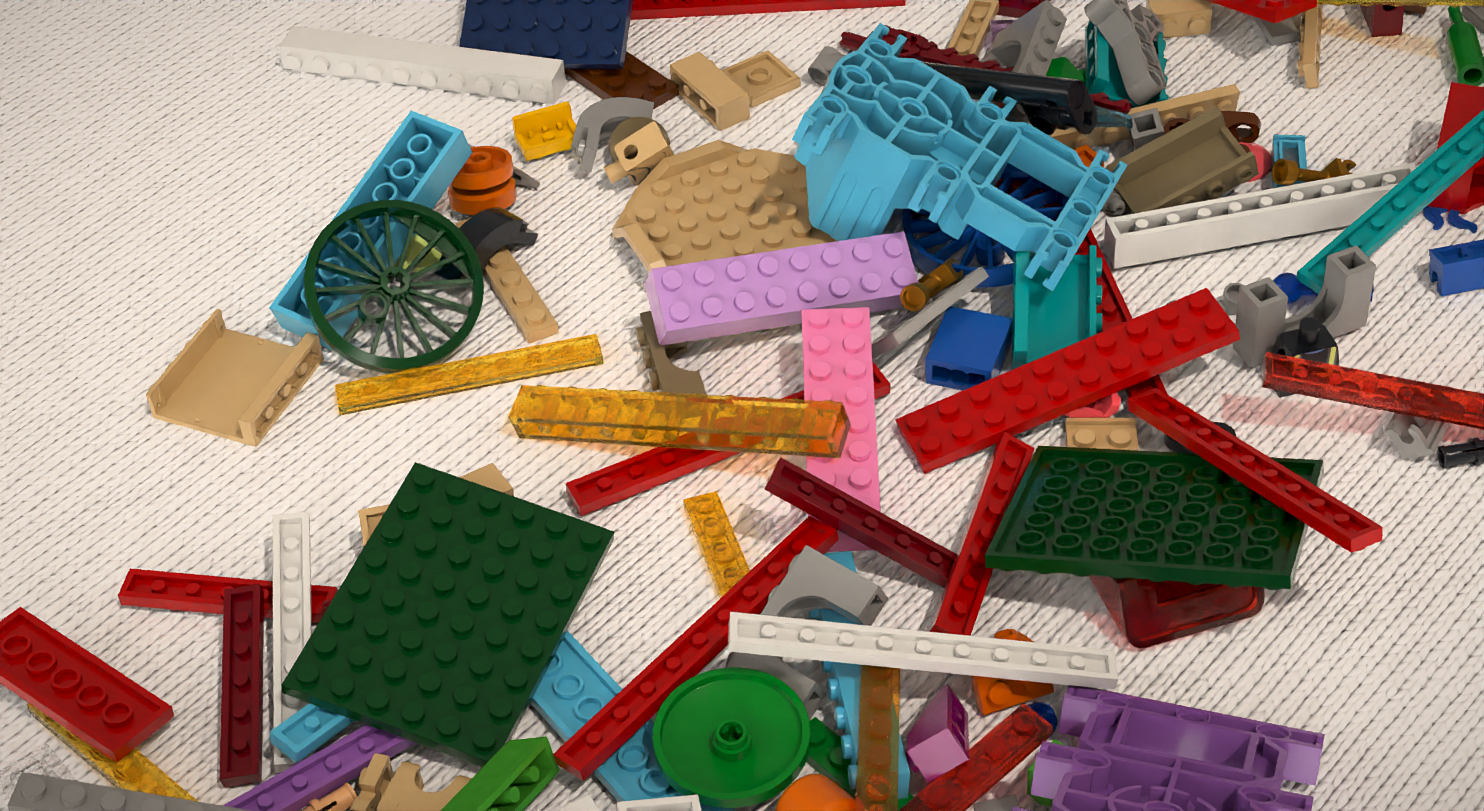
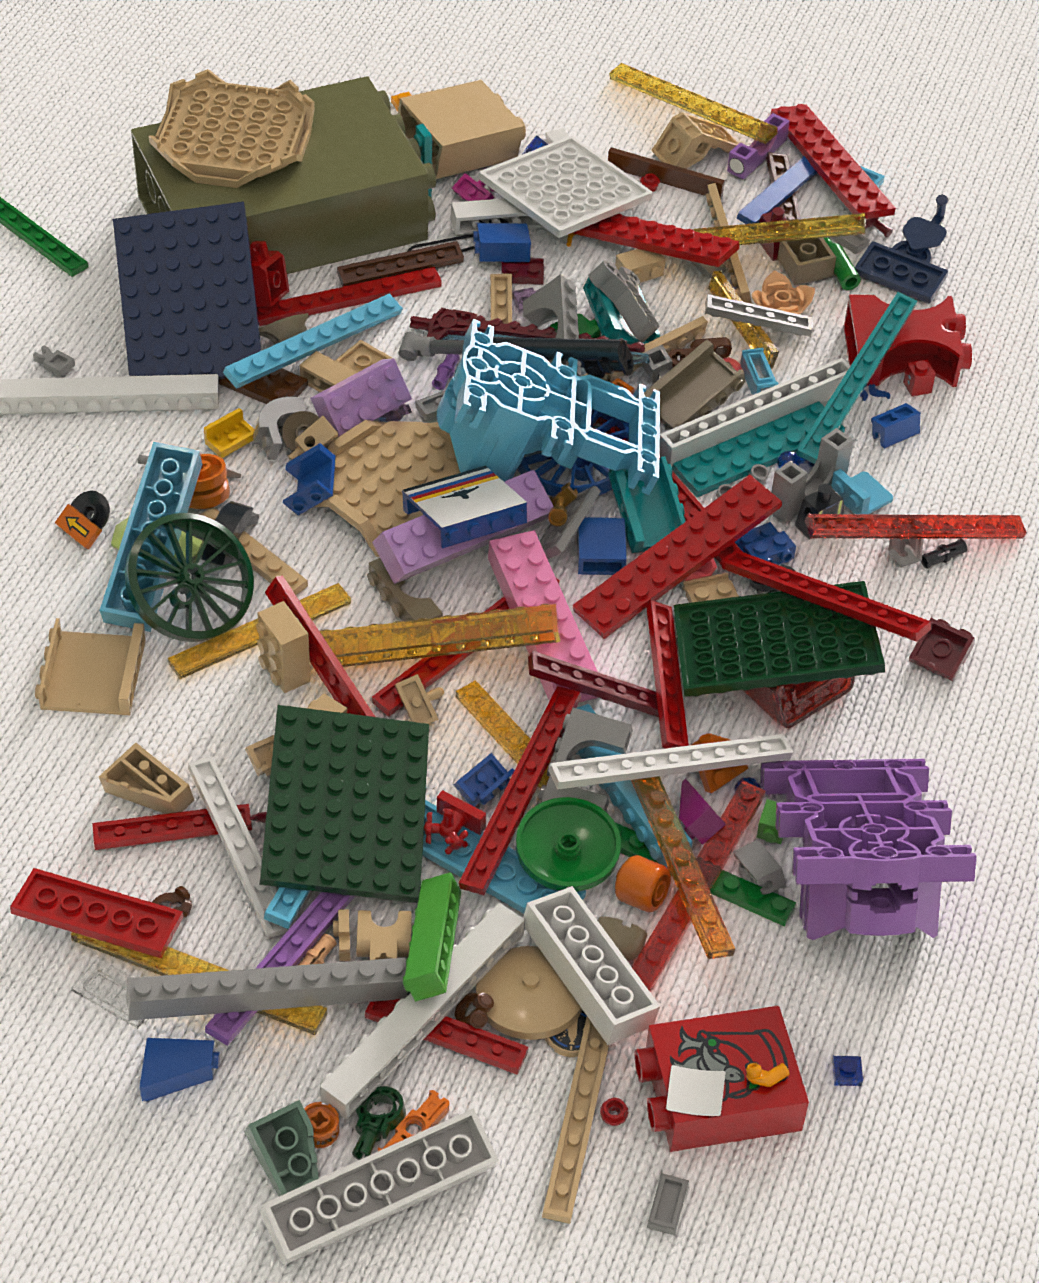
camera: 25 degrees left, 5 degrees up
(192, 689) = (179, 896): none -> reddish brown piece
(219, 530) = (146, 781): none -> tan wedge
(242, 686) = (219, 885): dark red plate -> none
(309, 209) = (78, 526): none -> orange tile
(327, 195) = (93, 502): none -> black dish
(383, 21) = (56, 362): none -> light grey plate
(470, 394) = (283, 647): none -> tan brick
(511, 405) = (320, 654): none -> red plate
(595, 662) = (455, 816): none -> red piece
(621, 501) = (417, 700): none -> tan plate
(624, 191) = (315, 478): none -> blue panel
(658, 624) = (482, 780): none -> blue bracket
(677, 25) = (284, 328): none -> dark tan hat
(698, 37) = (312, 340): none -> medium azure plate
(728, 112) = (362, 396): none -> lavender brick
(766, 141) = (396, 414): none -> clear purple plate
(787, 260) = (467, 505): none -> panel
(1175, 275) = (738, 455): none -> teal plate
(1208, 391) = (768, 544): none -> blue plate
(1287, 171) = (766, 378): pearl gold bar -> none
(1296, 98) = (753, 335): none -> clear yellow plate
(1312, 93) = (758, 315): none -> light grey plate
(1360, 82) = (780, 294): none -> light nougat brick
(1377, 347) = (861, 492): none -> medium azure bracket
(1417, 36) = (807, 260): none -> dark tan brick
(1419, 582) = (943, 649): none -> dark red plate

